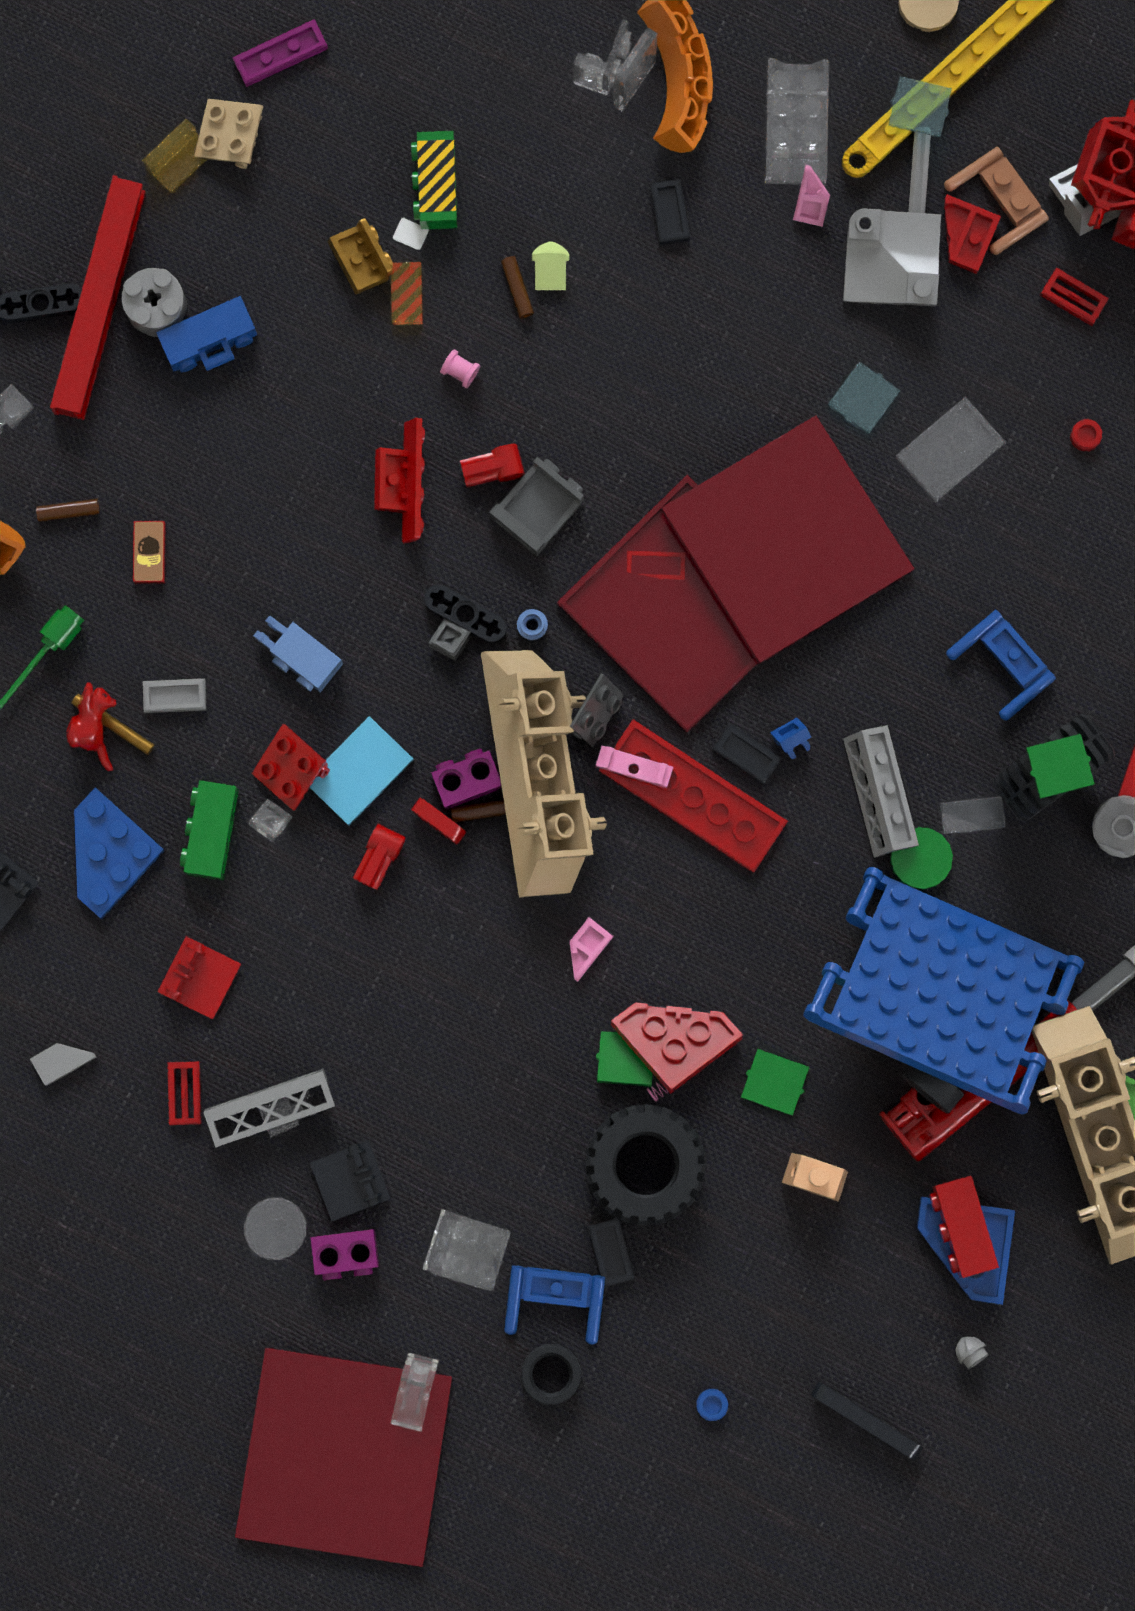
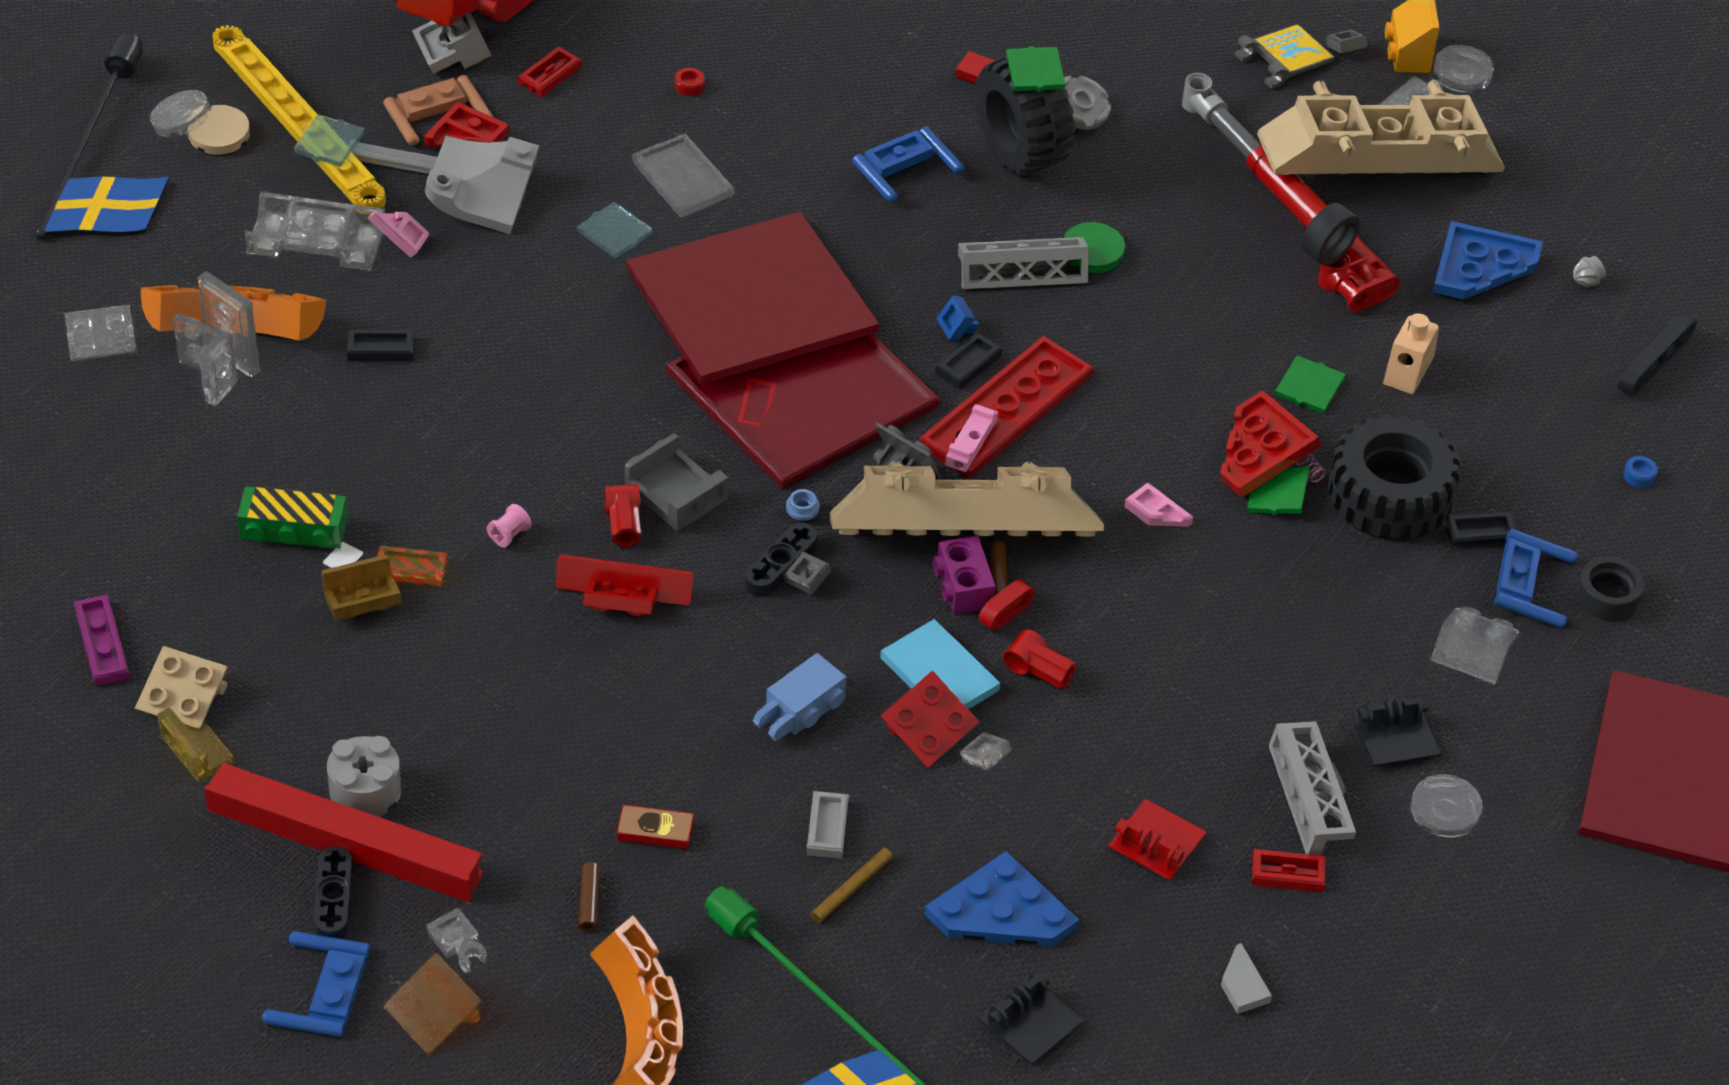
camera: 85 degrees left, 35 degrees down
(87, 728) = (851, 895): red animal -> none
(206, 332) = (409, 722): blue piece -> none
(209, 830) = (990, 802): green brick -> none
(344, 1245) = (1477, 741): magenta brick -> none
(414, 1391) = (1631, 686): clear arch -> none
(517, 287) = (429, 473): reddish brown piece -> none
(550, 266) = (416, 438): yellowish green tile -> none
(944, 991) = (1237, 218): blue plate -> none
(963, 1227) = (1468, 247): red brick -> none
(972, 815) = (1054, 207): clear tile -> none

